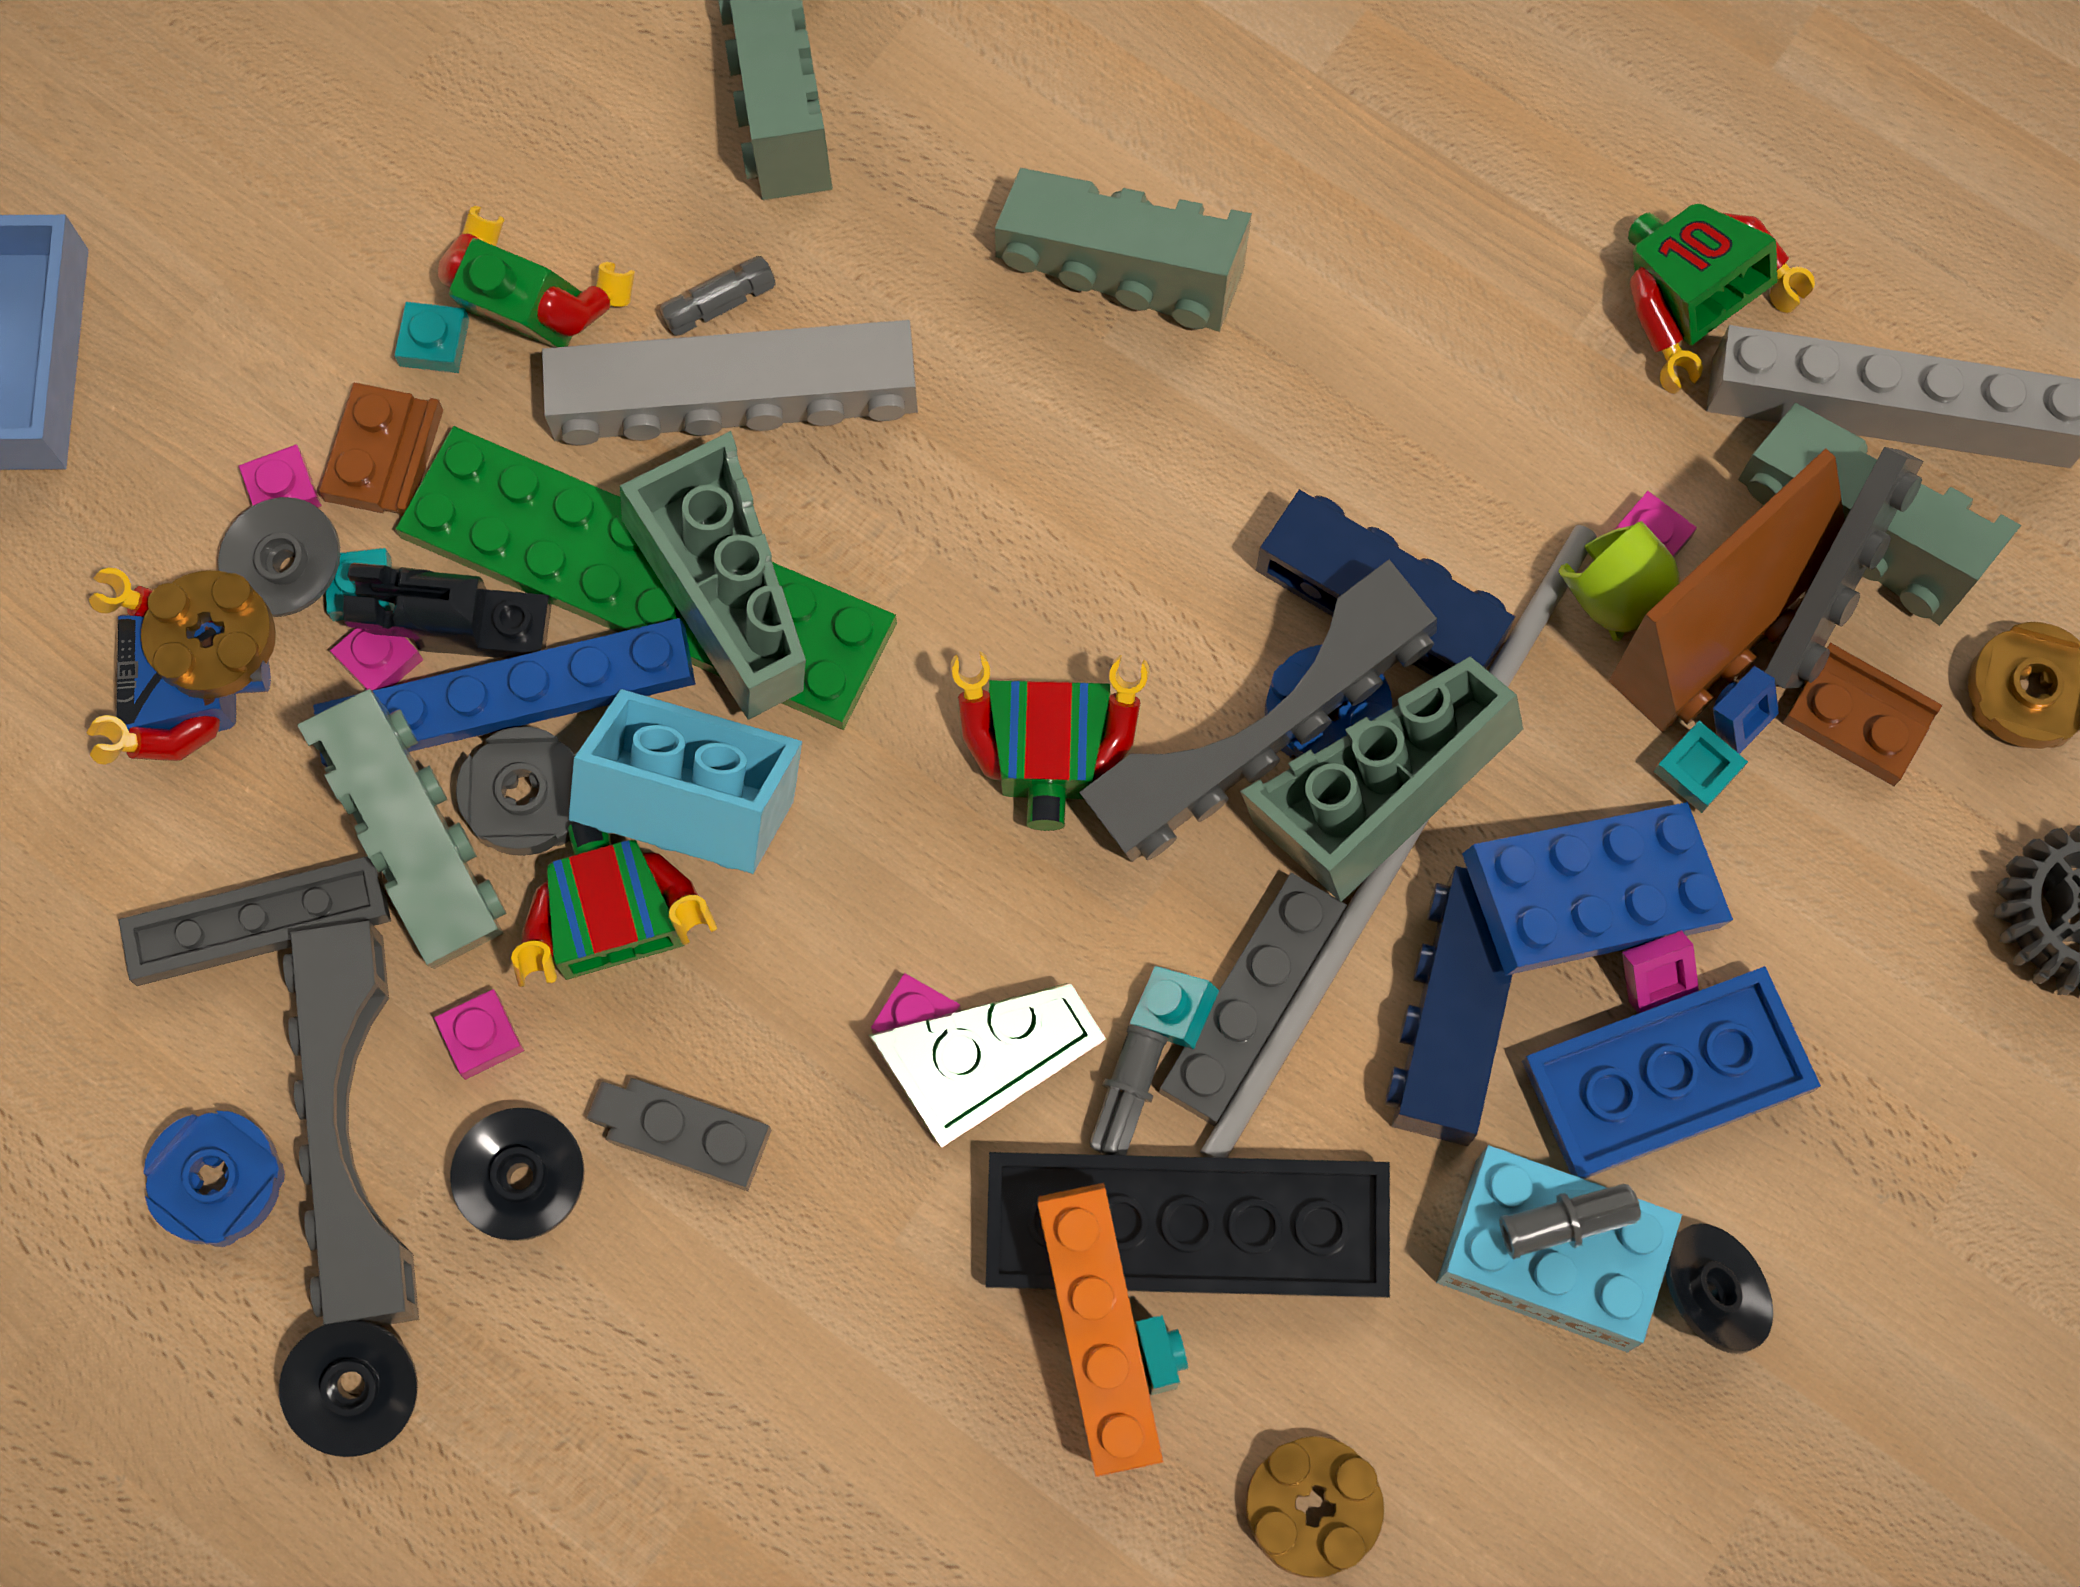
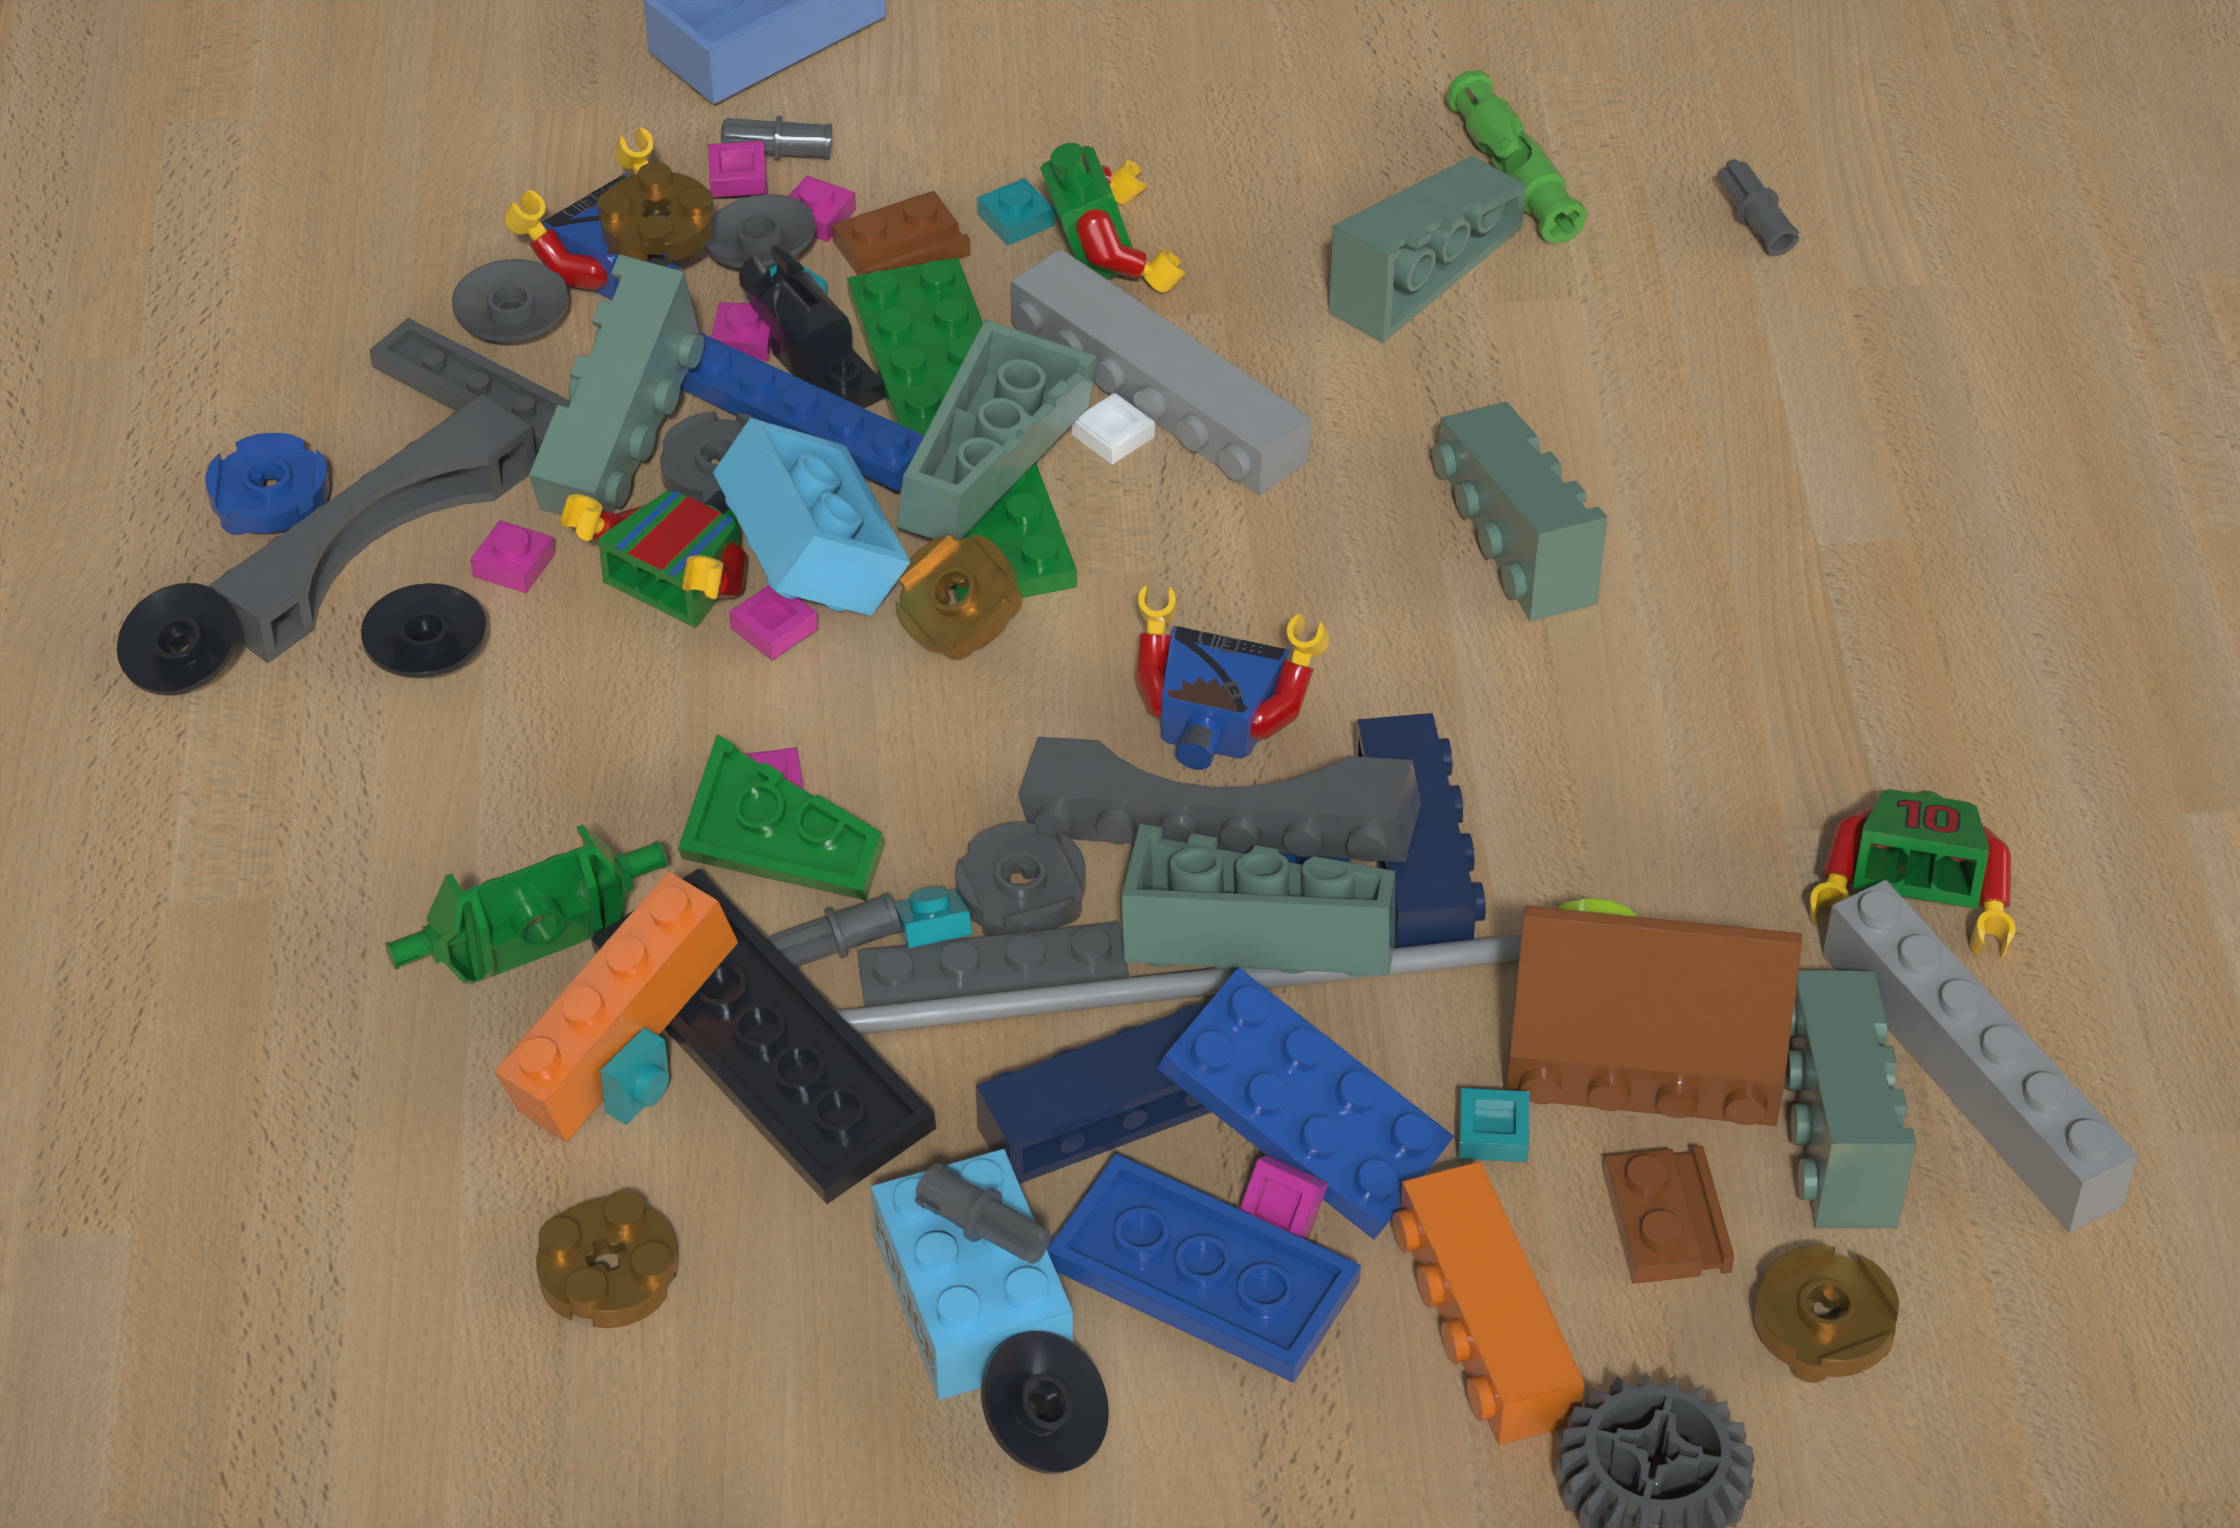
camera: 50 degrees right, 25 degrees down
(158, 796) = (510, 300): none -> dark grey dish
(168, 453) = (781, 137): none -> dark grey axle
(177, 514) = (737, 169): none -> dark pink plate
(681, 1131) = (548, 710): dark grey hinge -> none
(718, 295) = (1223, 329): dark grey axle -> none
(748, 895) = (772, 621): none -> dark pink plate
(761, 458) = (1113, 428): none -> white tile
(885, 705) = (974, 620): none -> pearl gold plate
(936, 1350) = (486, 926): none -> green plate
(1047, 735) = (1072, 694): torso -> none
(1125, 607) = (1220, 689): none -> torso
(1168, 879) = (1008, 908): none -> dark grey plate
(1745, 709) = (1574, 1119): blue plate -> none
(1857, 546) = (1750, 1066): dark grey plate -> none
(1862, 905) = (1488, 1303): none -> orange brick

